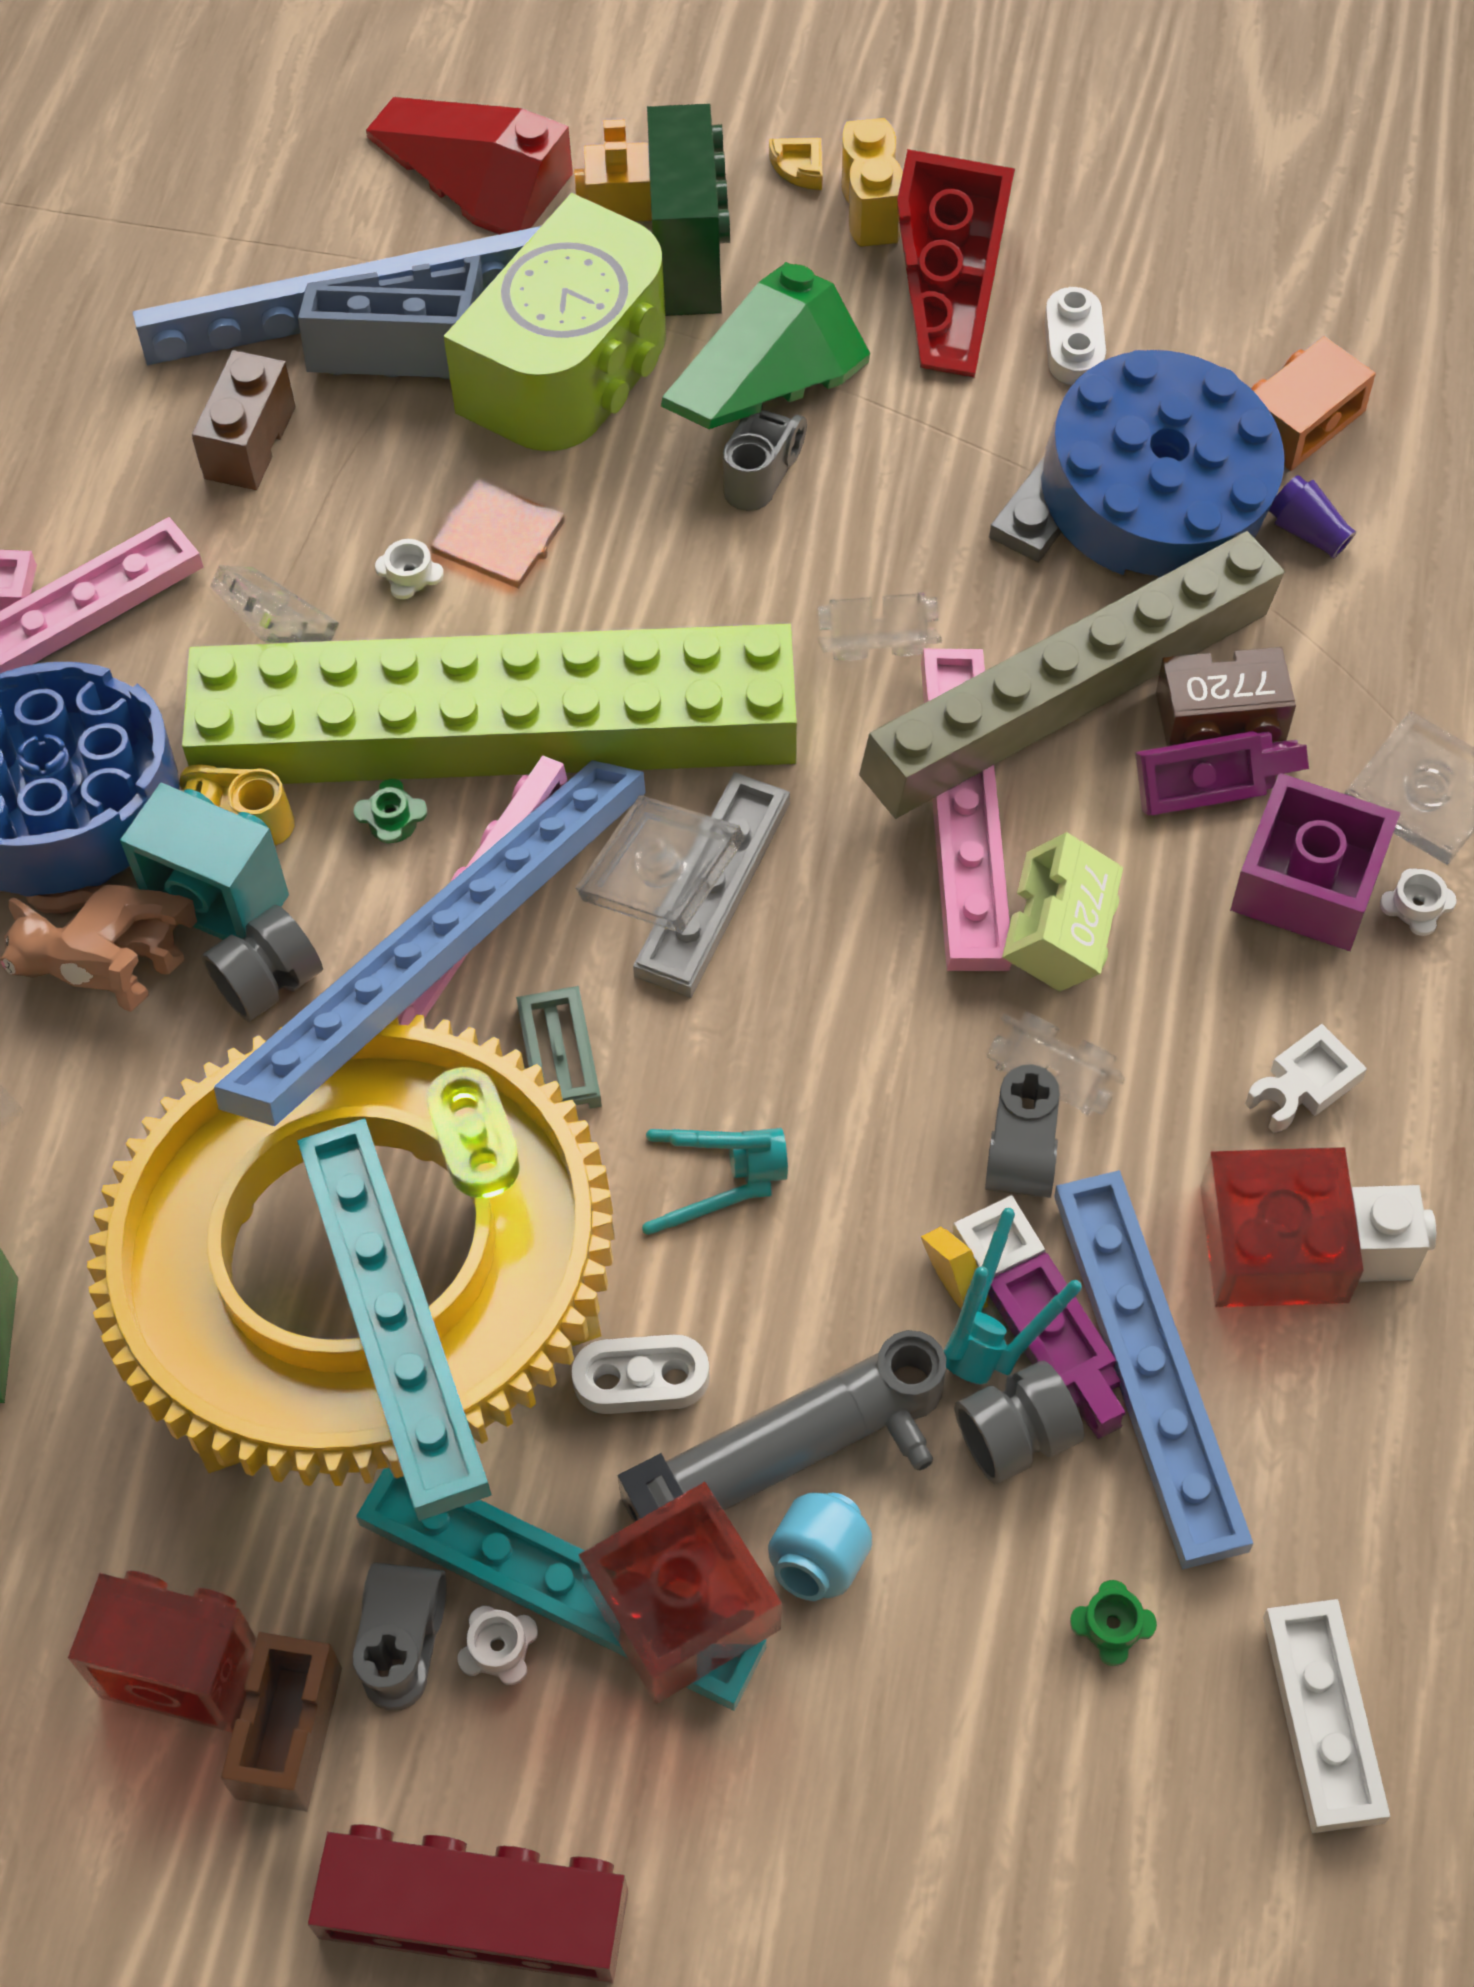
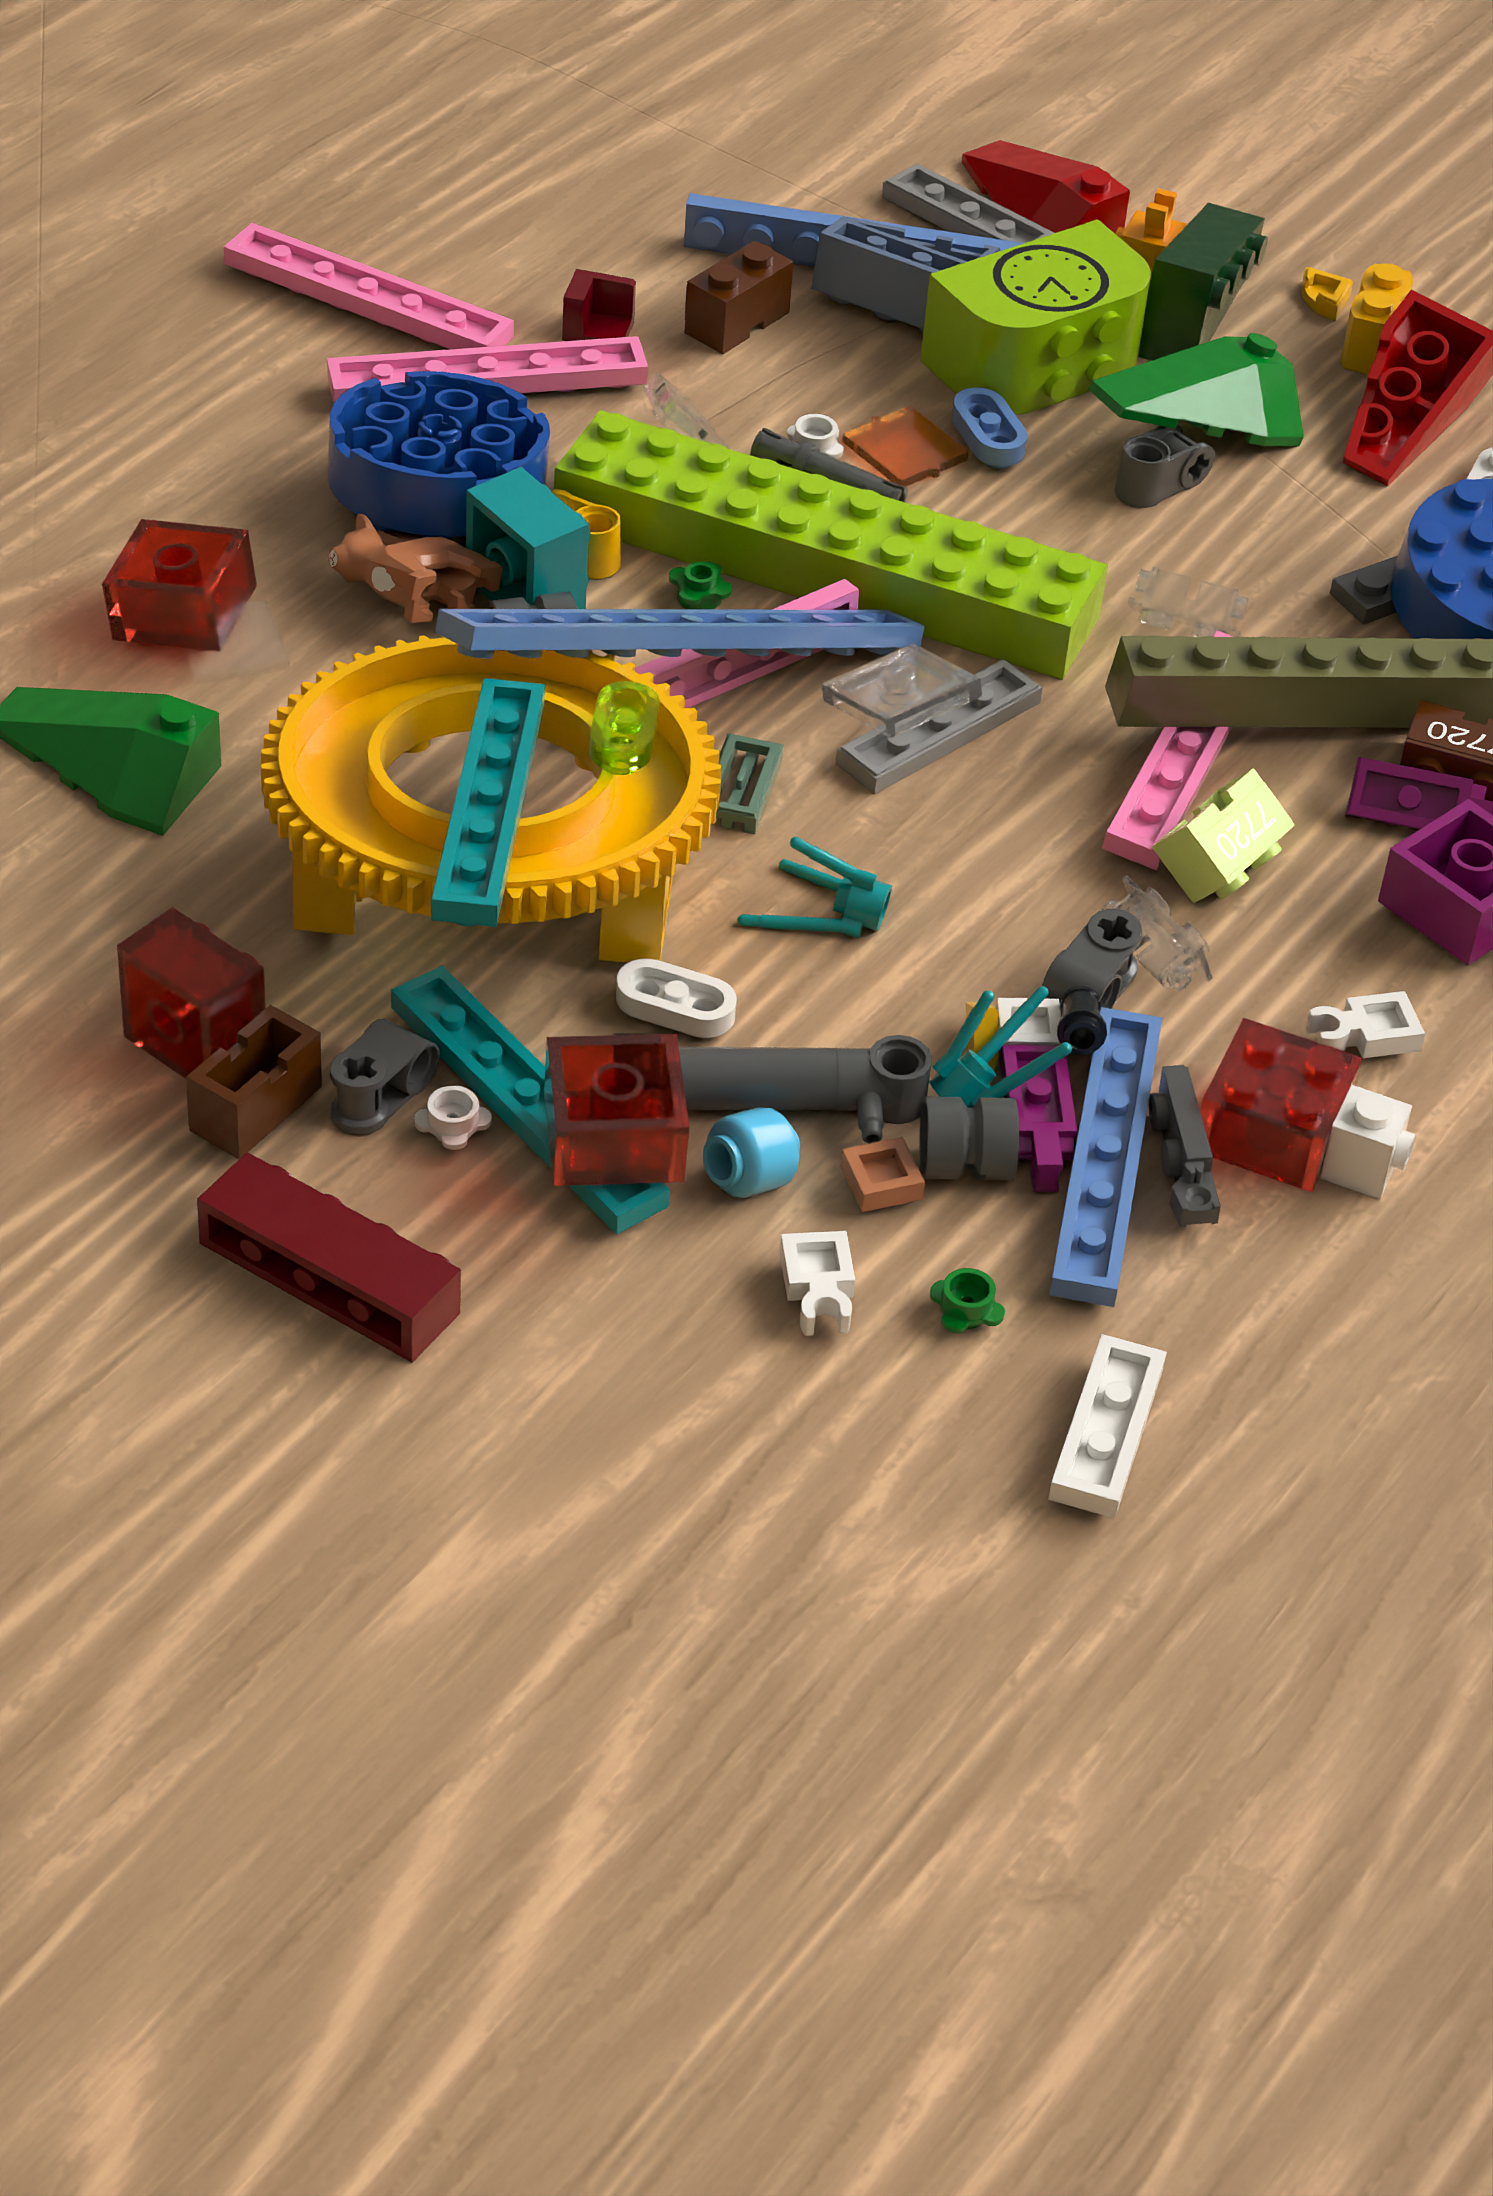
camera: 20 degrees right, 15 degrees down
(109, 496) = (598, 306): none -> dark red panel
(410, 208) = (957, 207): none -> light grey tile
(444, 608) = (809, 459): none -> dark grey pin
(580, 486) = (989, 427): none -> medium blue plate
(954, 1503) = (882, 1174): none -> nougat plate
(958, 1664) = (819, 1273): none -> white plate
(1058, 1230) = (1081, 1021): none -> black pin
(1223, 1326) = (1184, 1148): none -> dark grey hinge

